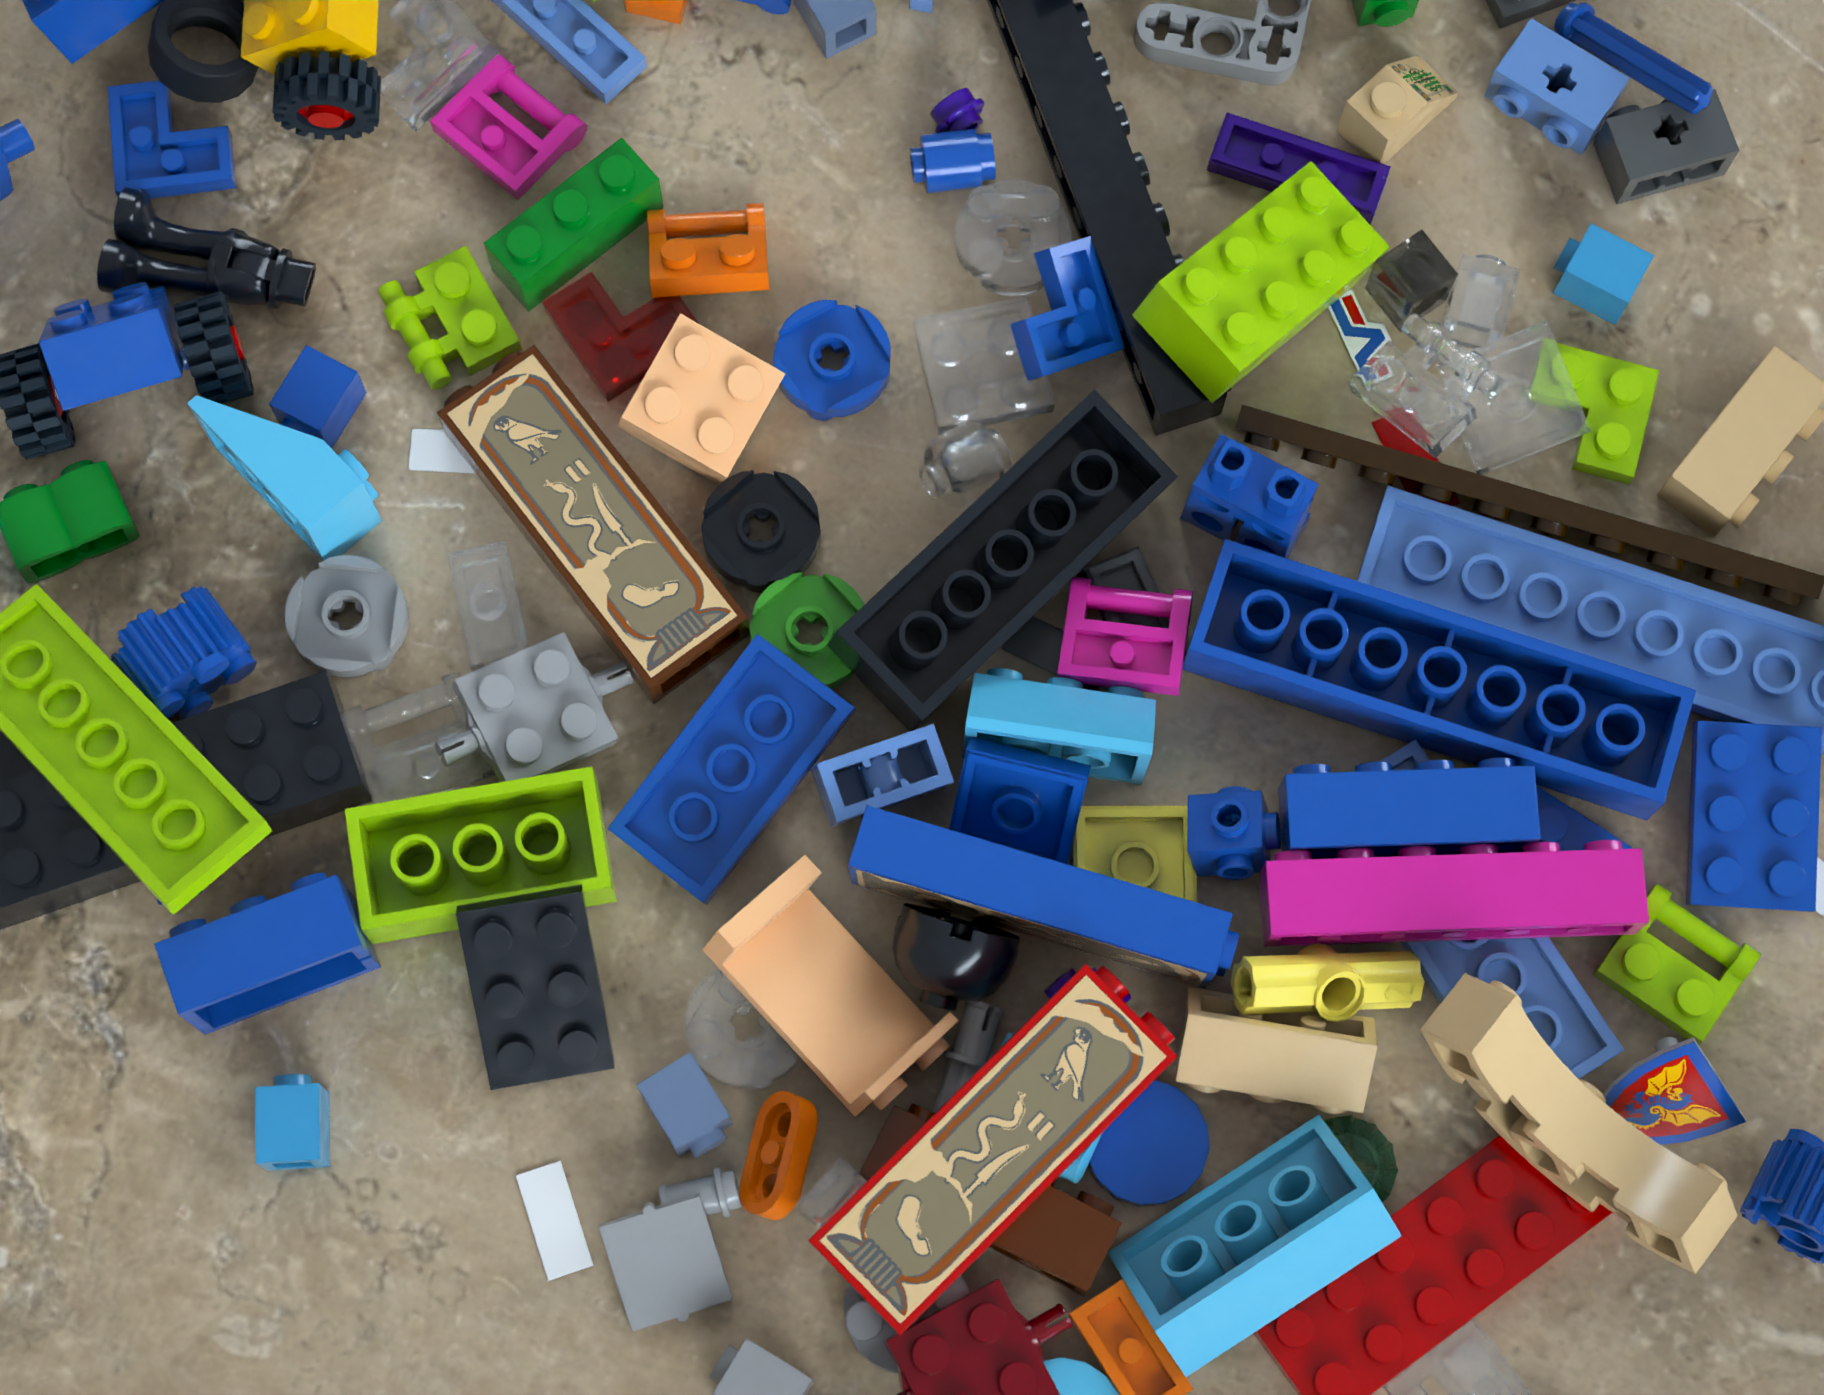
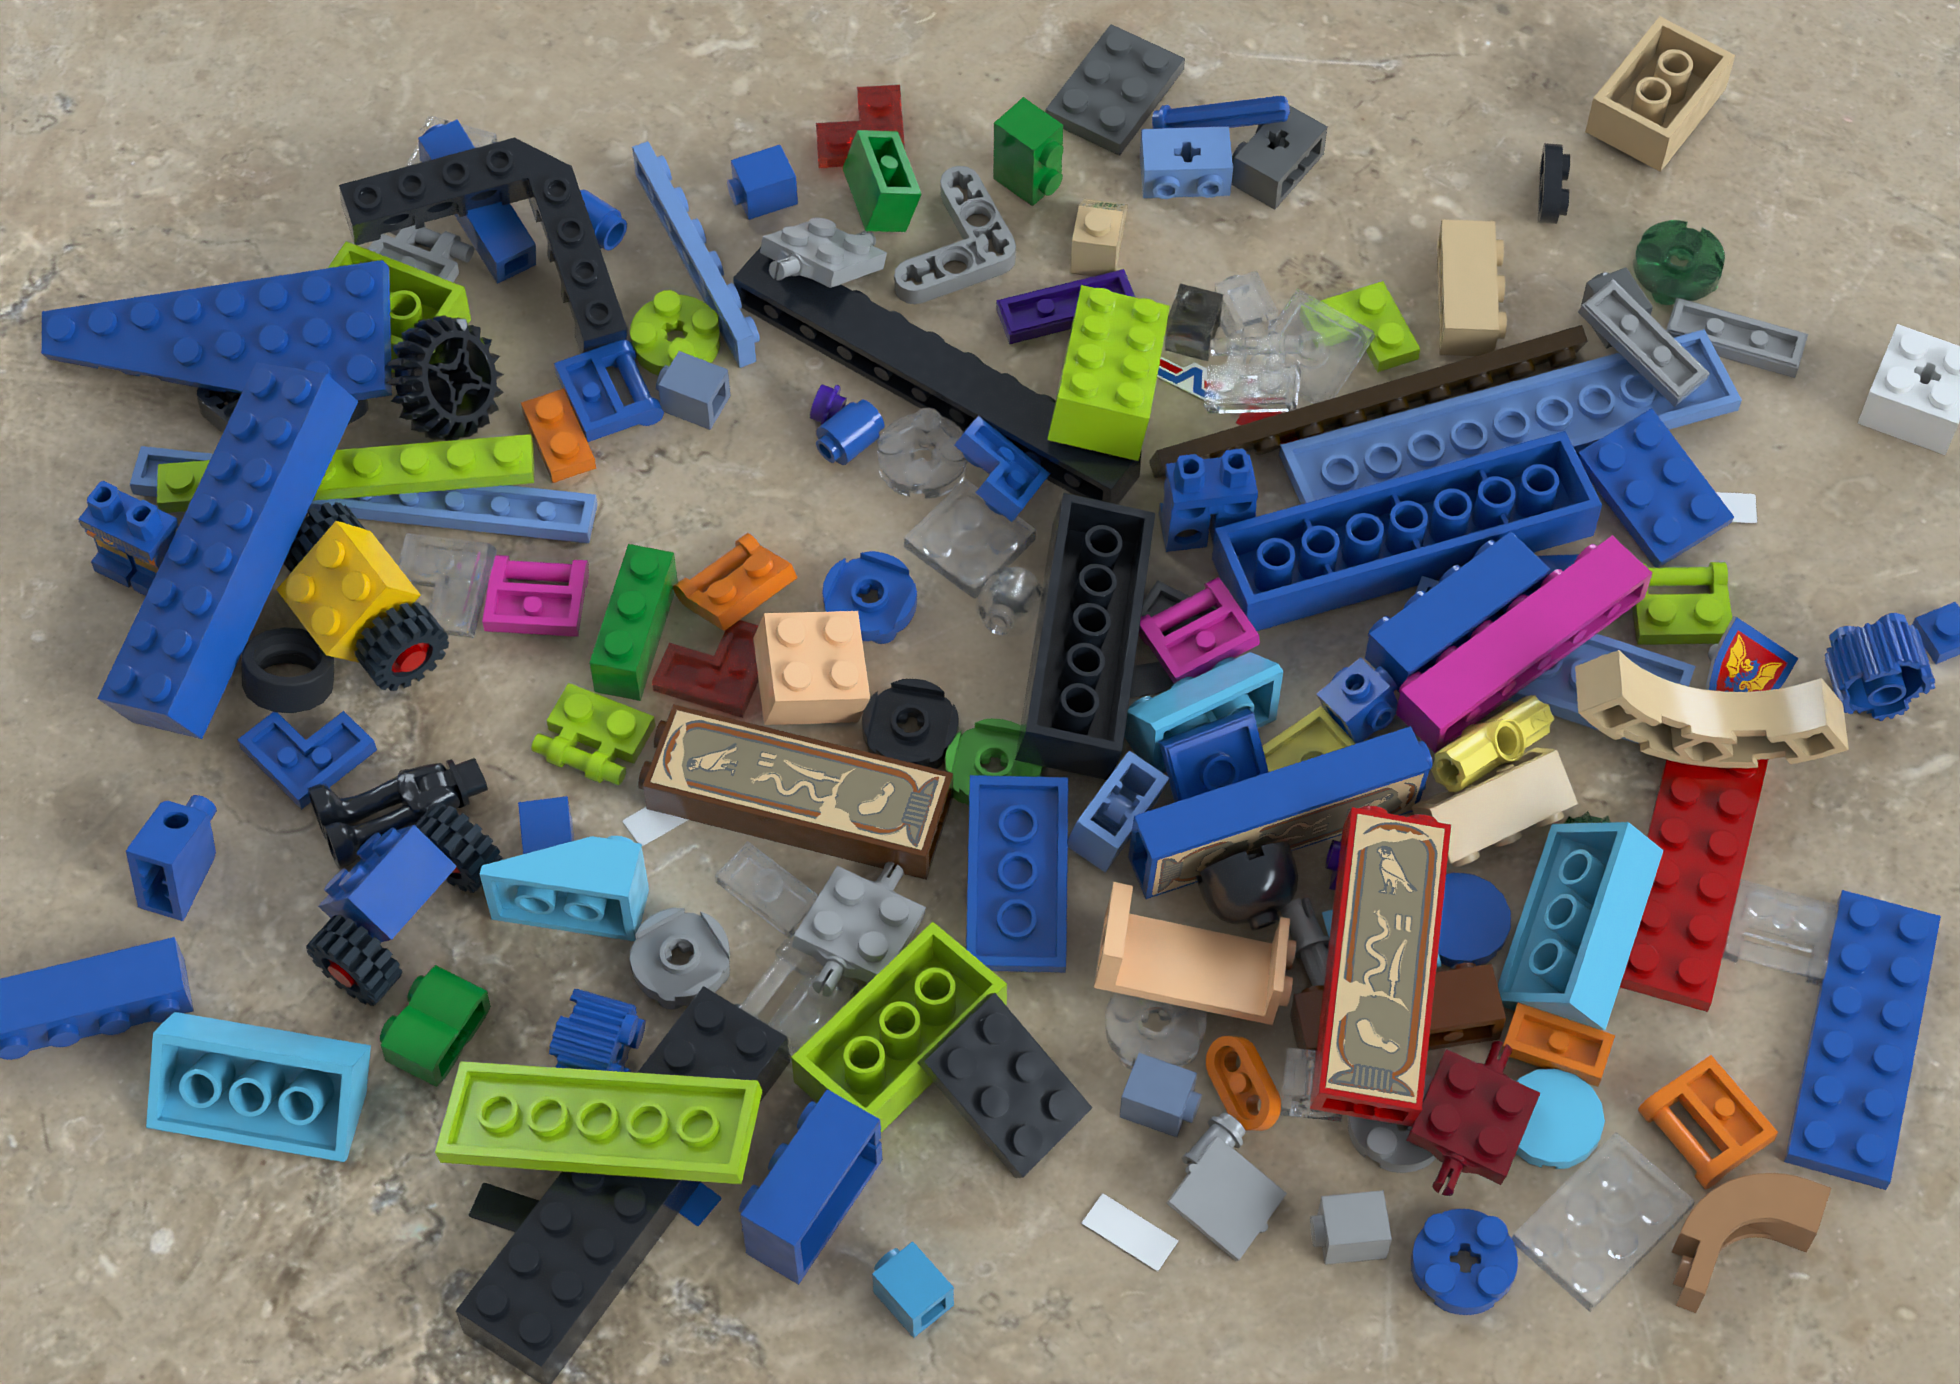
camera: 35 degrees left, 15 degrees down
(1600, 272) = (1303, 248): dark azure brick -> none

